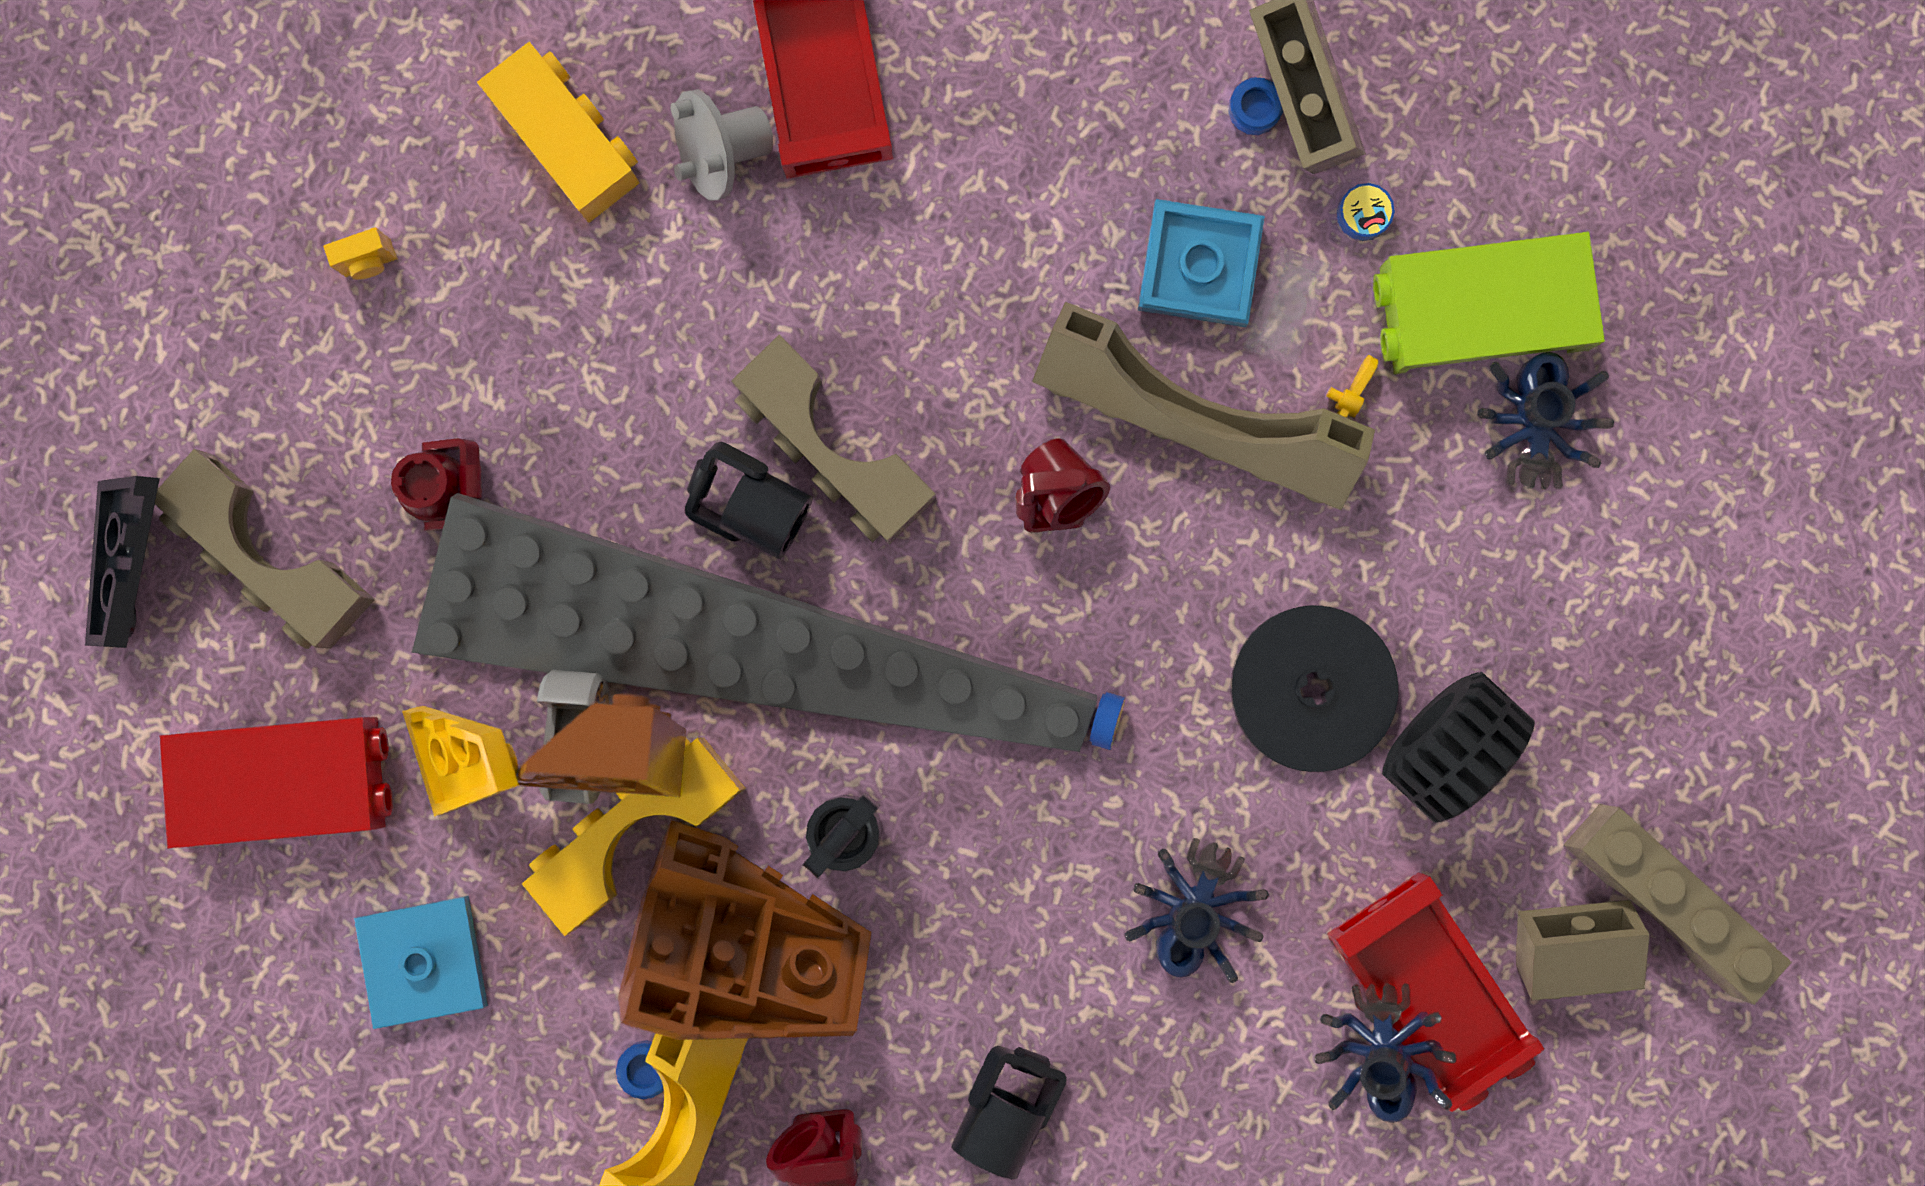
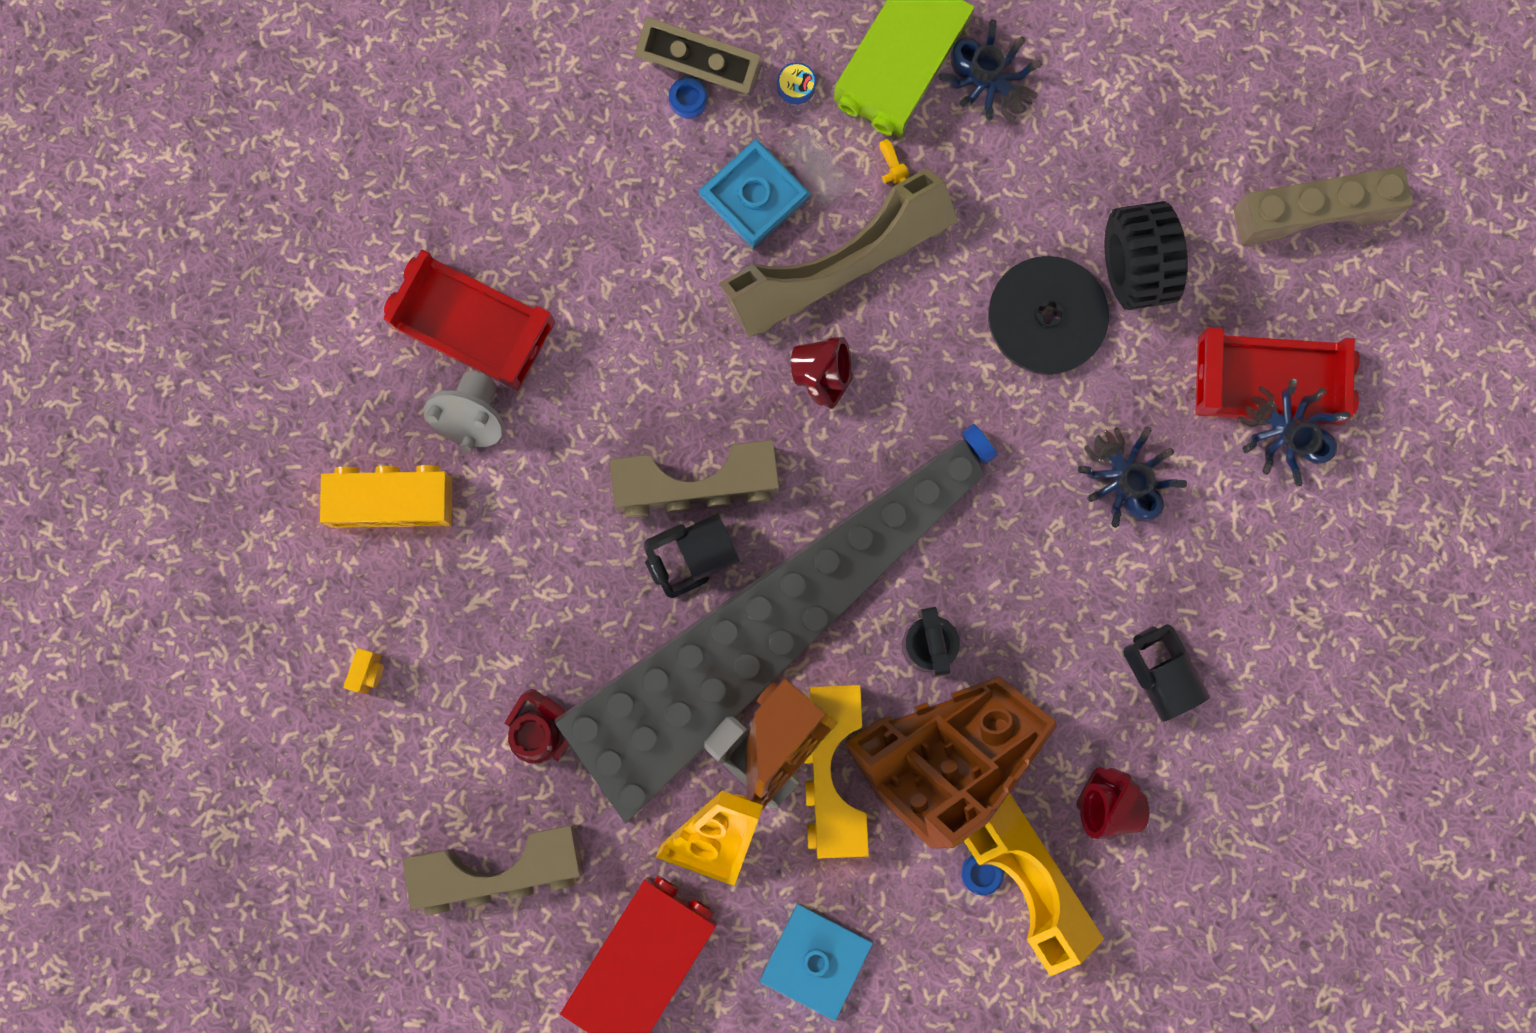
camera: 55 degrees left, 5 degrees down
(118, 554) = (427, 957): black wing -> none
(1581, 950) = (1311, 277): dark tan brick -> none

